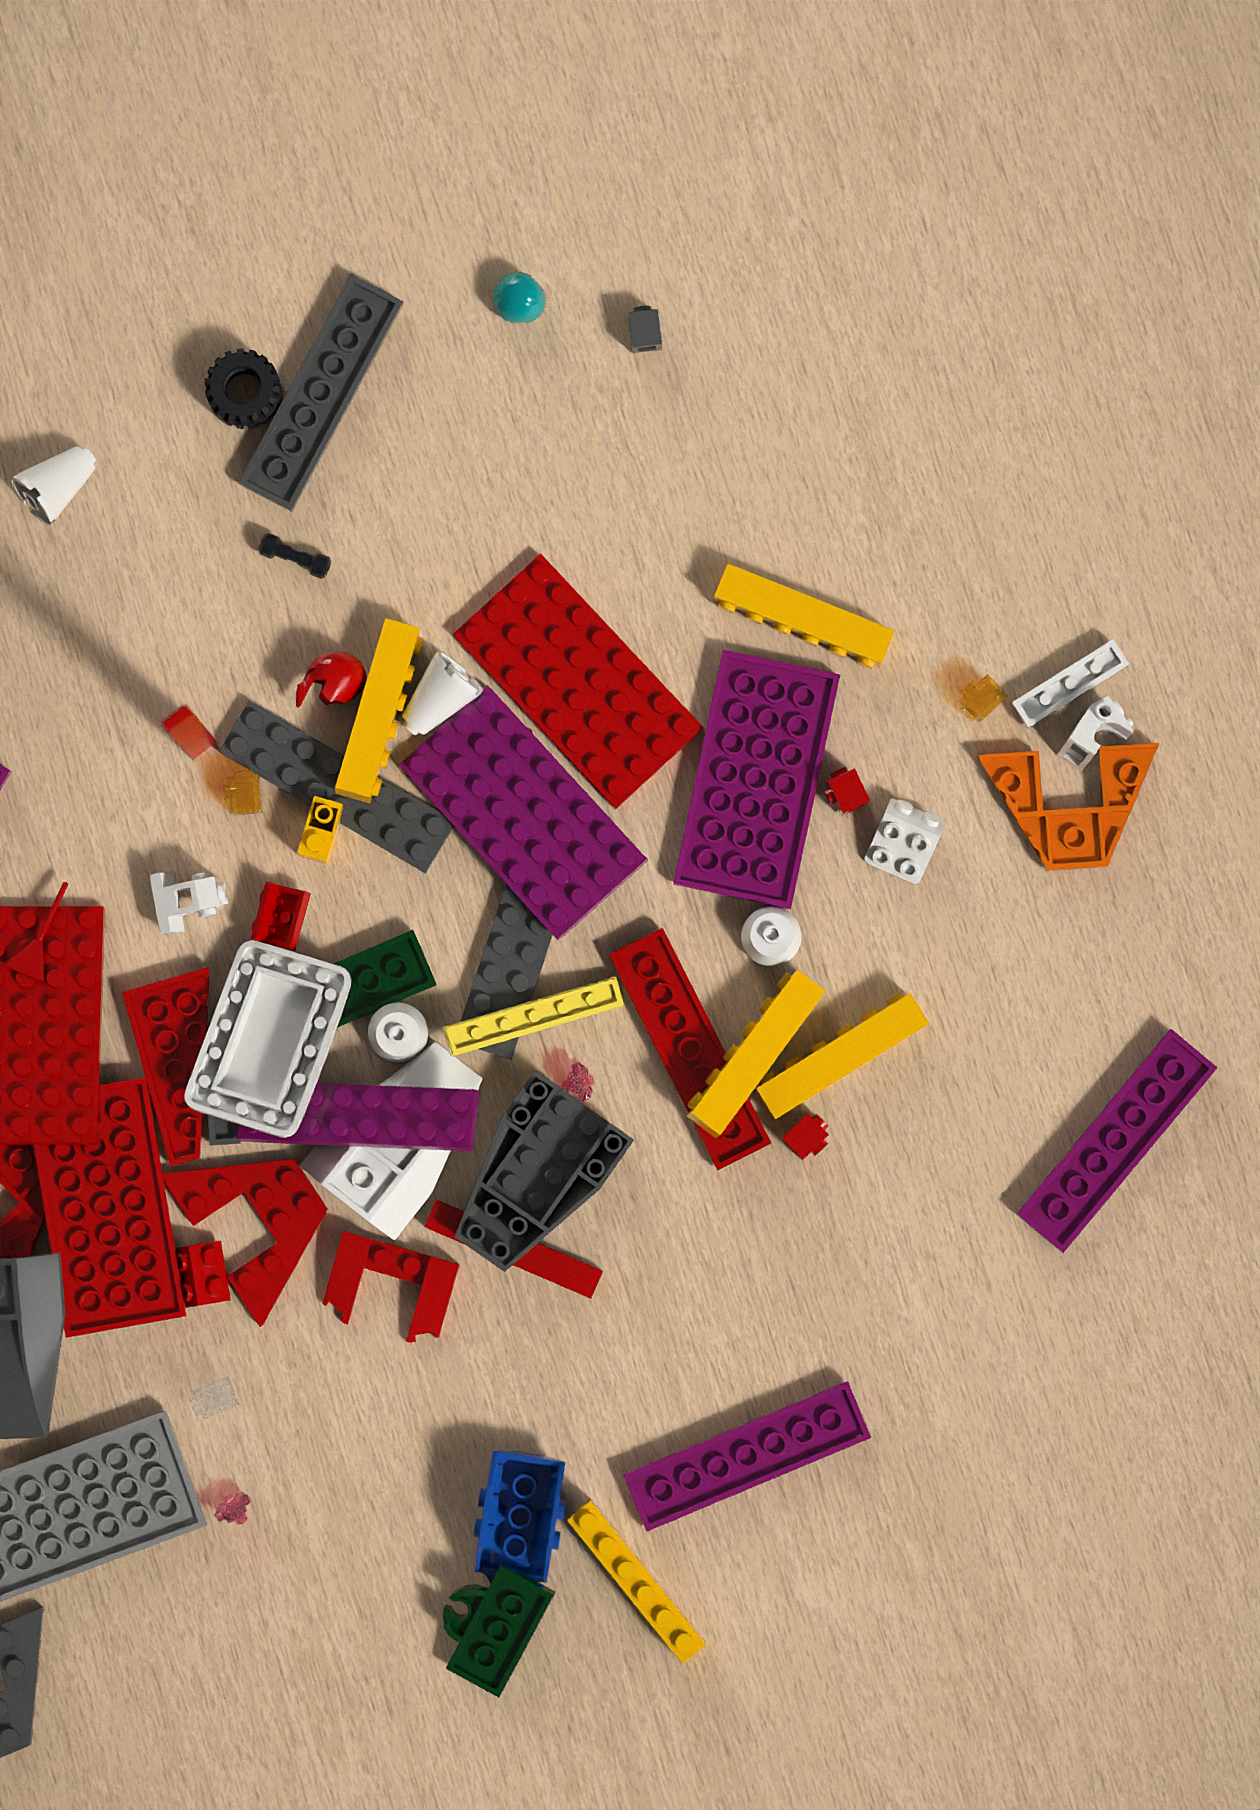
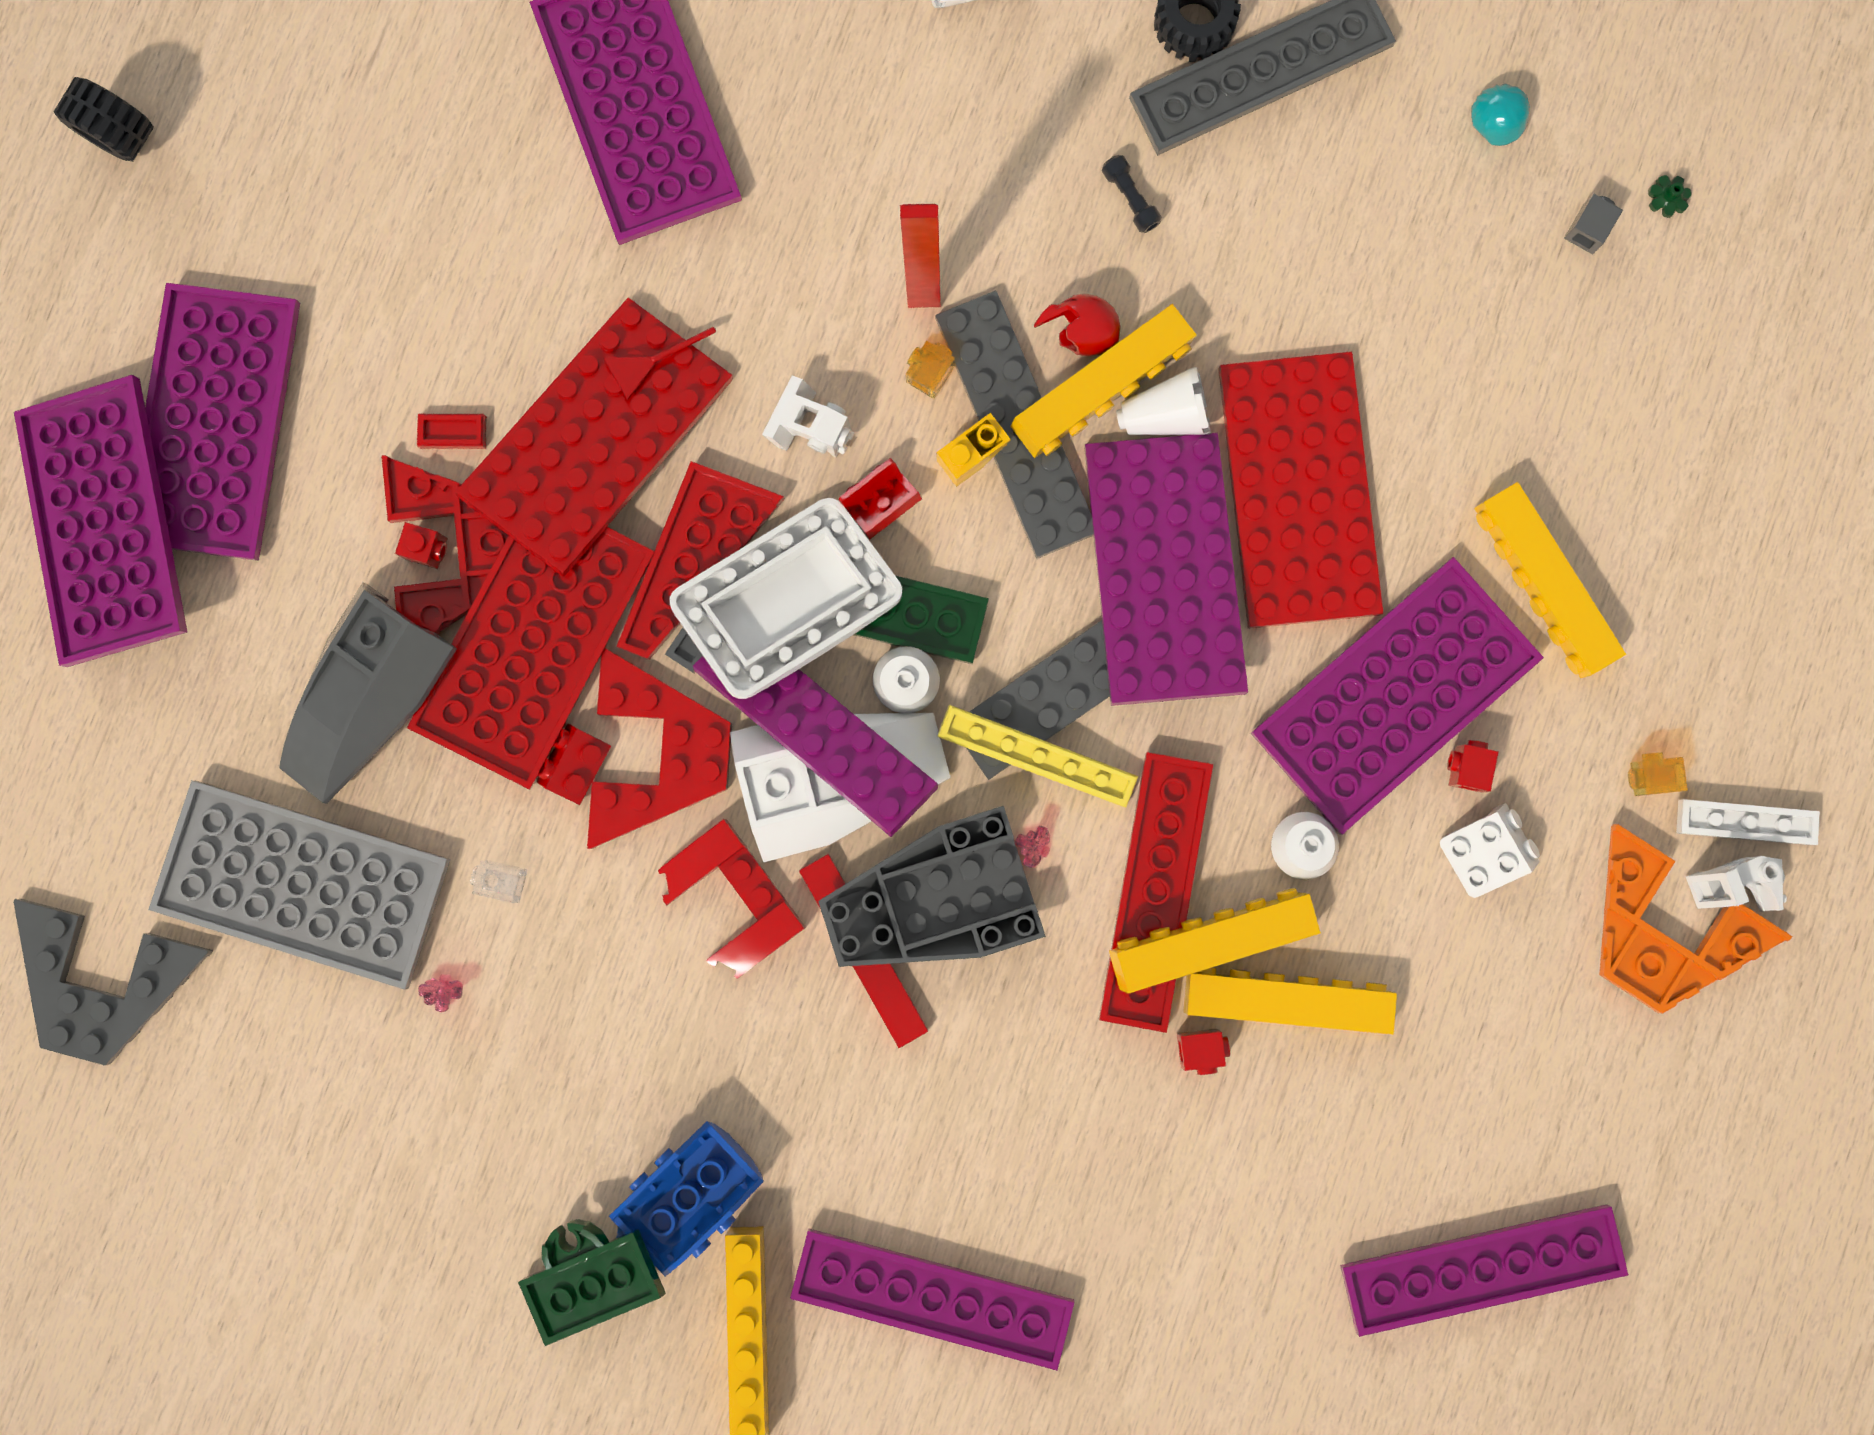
camera: 45 degrees right, 0 degrees up
(685, 271) = (1669, 196): none -> dark green plant

